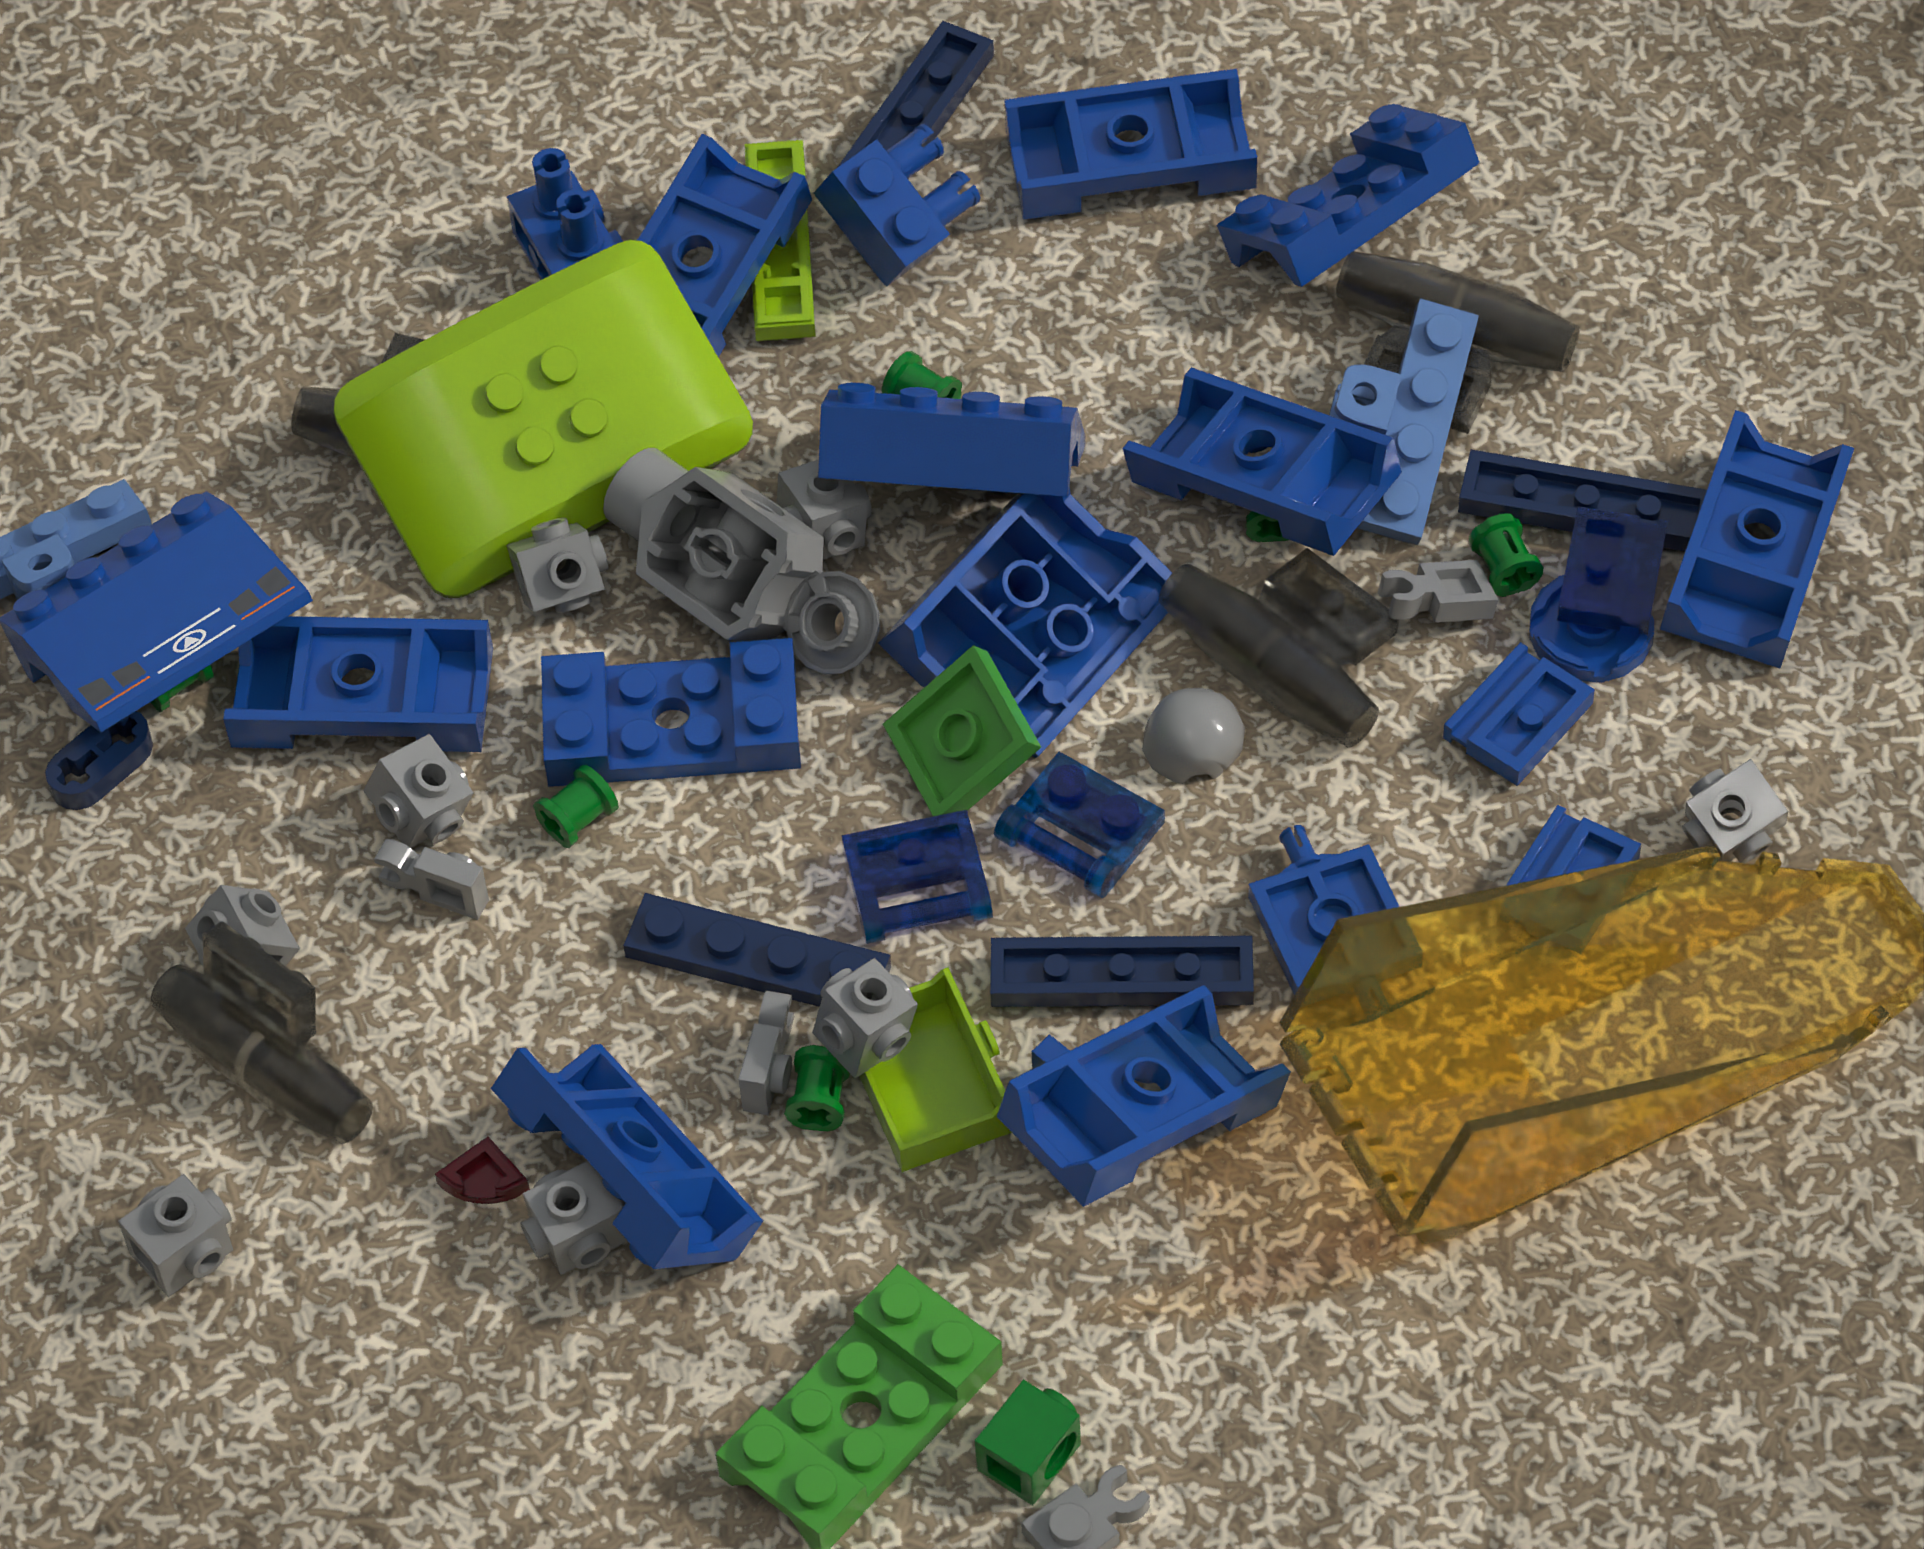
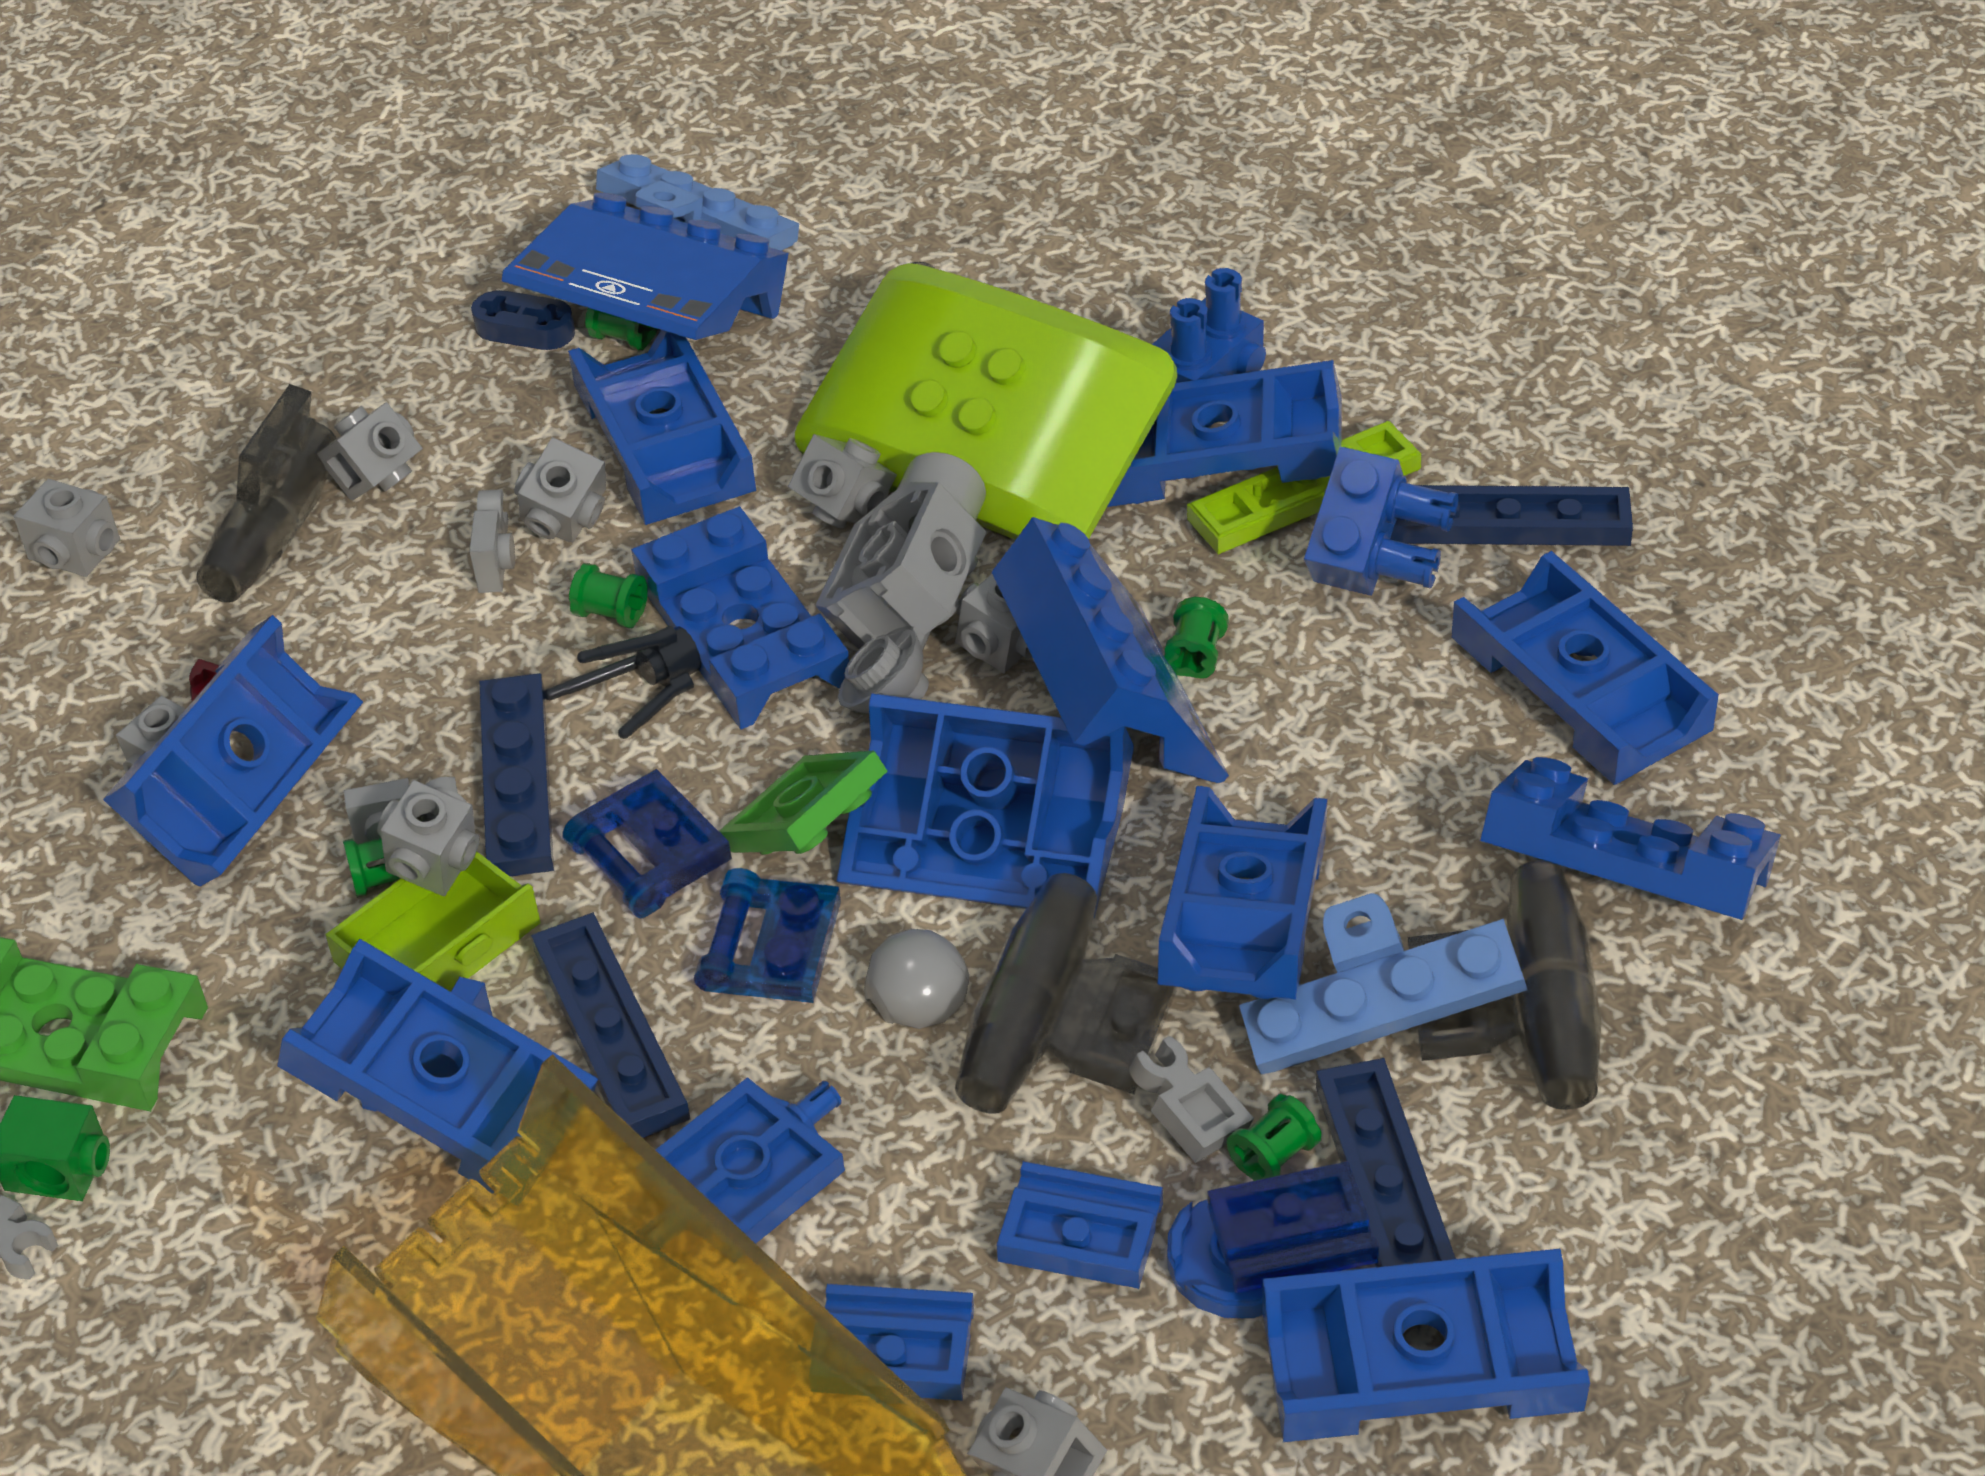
camera: 65 degrees right, 10 degrees down
(693, 794) = (661, 657): none -> black plant

